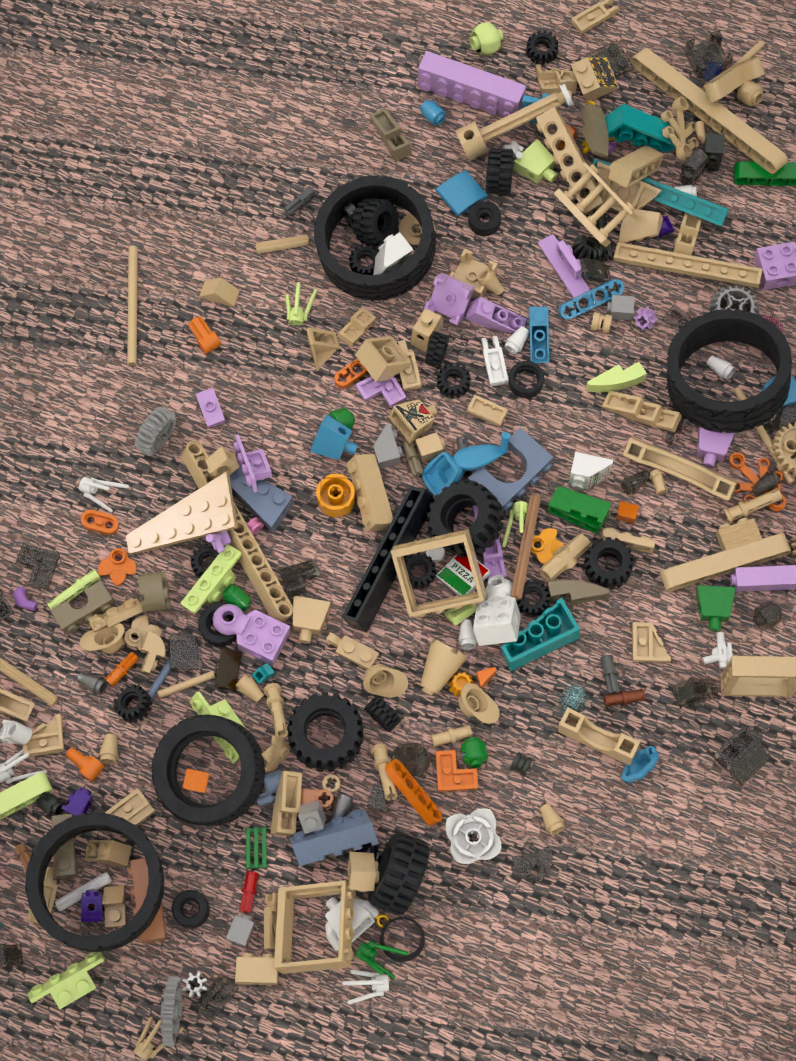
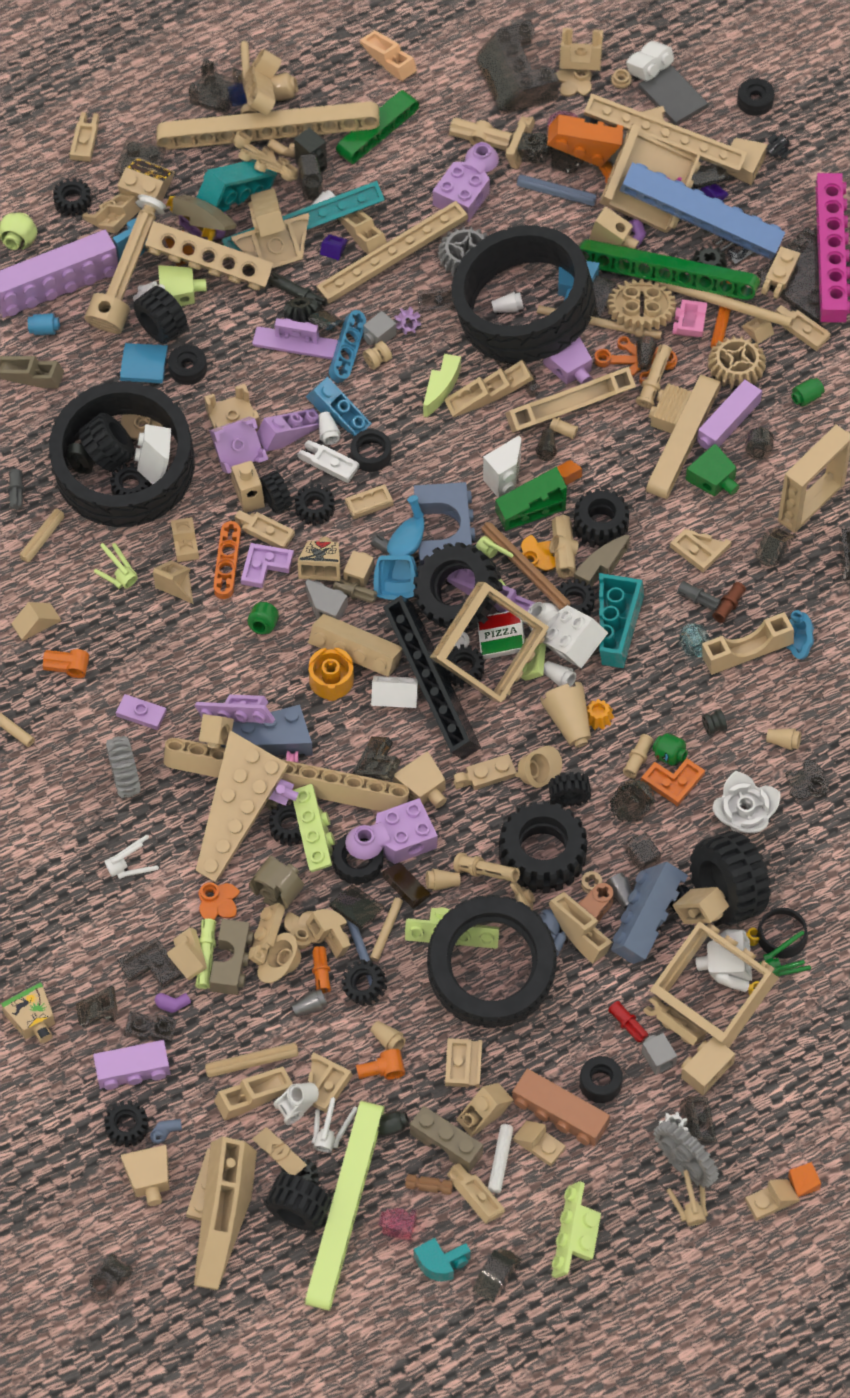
camera: 50 degrees left, 10 degrees down
(49, 846) = (524, 1059): black tyre -> none
(60, 582) = (188, 954): none -> tan slope
(78, 802) = (415, 1098): dark purple brick -> none
(95, 914) = (518, 1162): dark purple brick -> none
(100, 521) = (159, 882): orange plate -> none
(195, 780) = (497, 969): orange slope -> none
(236, 596) = (344, 822): green brick -> none
(256, 865) = (599, 980): green tile -> none
(263, 673) = (438, 857): teal piece -> none
(312, 817) = (612, 911): light grey brick -> none
(333, 439) = (276, 634): dark azure torso -> none
(358, 544) = (394, 691): none -> white hinge
(379, 983) = (805, 981): white plant -> none
(381, 757) = (615, 825): tan pin -> none
(382, 358) = (241, 538): tan slope -> none
(426, 808) = (664, 819): orange beam -> none
(478, 704) = (630, 713): tan piece -> none
(485, 676) = (610, 690): orange slope -> none
(490, 281) = (250, 402): tan cone -> none
(590, 221) = (280, 287): tan fence -> none
(641, 543) = (608, 480): tan hinge -> none
(644, 225) = (319, 256): tan slope -> none
(721, 653) = (758, 502): white piece -> none

